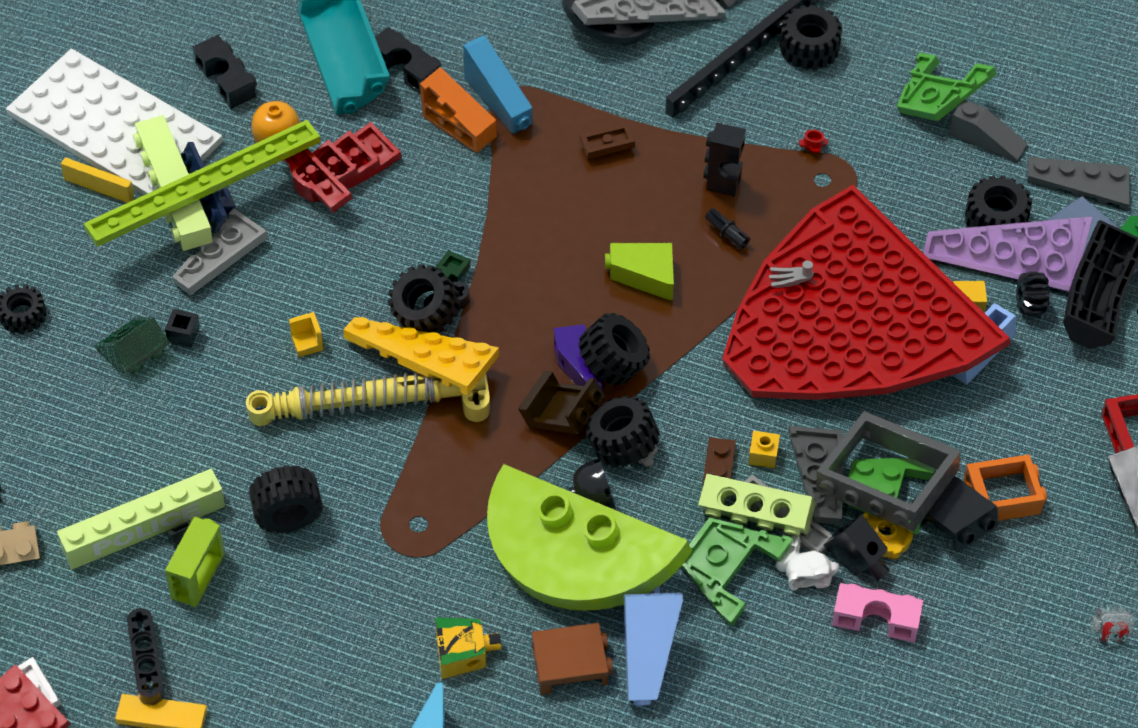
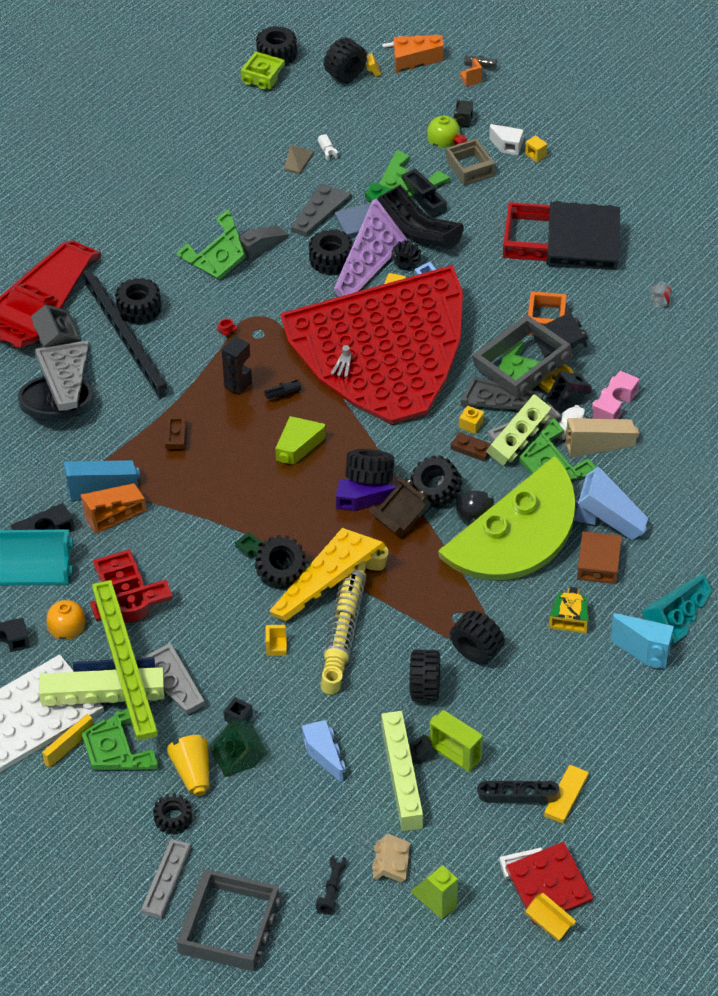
camera: 70 degrees left, 5 degrees down
(89, 303) = (191, 762): none -> yellow cone
(98, 205) = (109, 748): none -> bright green wing
(155, 428) = (320, 746): none -> light blue slope
(365, 541) = (477, 637): none -> black tyre
(790, 604) = (599, 435): none -> tan slope

